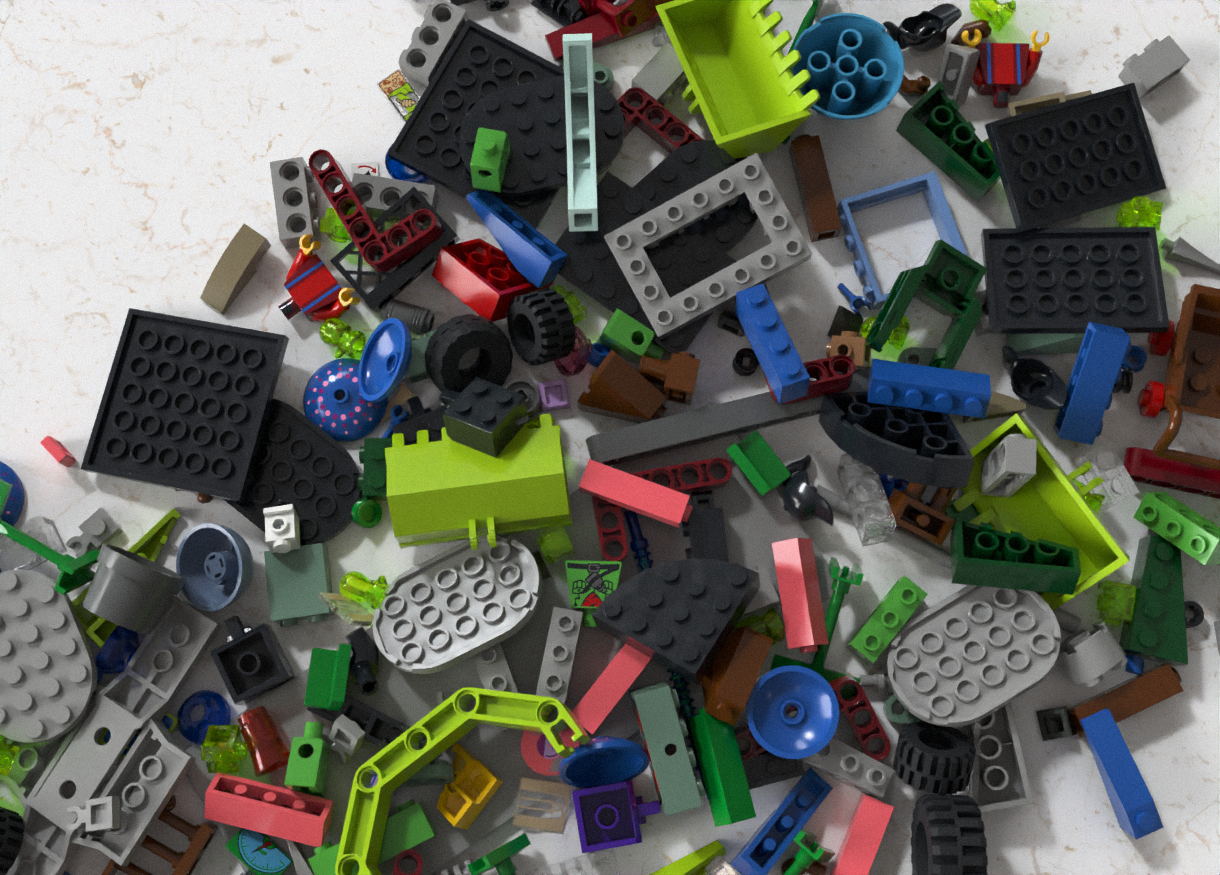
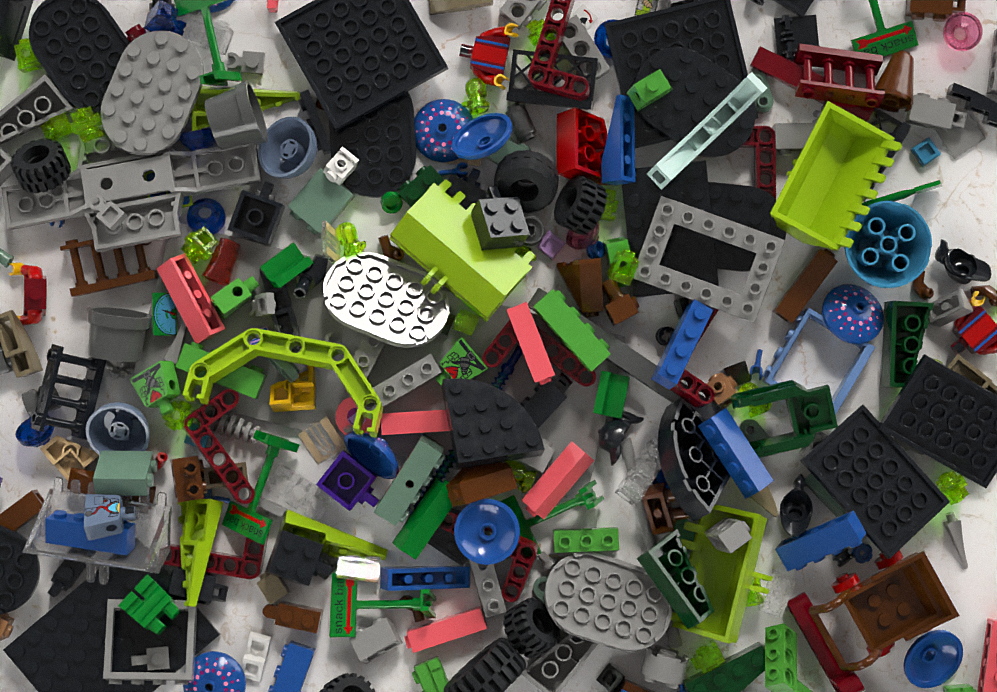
camera: 45 degrees right, 10 degrees up
(192, 509) = (314, 122): none -> black plate
(411, 558) = (390, 250): none -> reddish brown arm
(650, 334) = (626, 273): none -> clear neon green brick
(658, 440) = (571, 330): none -> bright green brick
(882, 166) = (846, 320): none -> blue dish

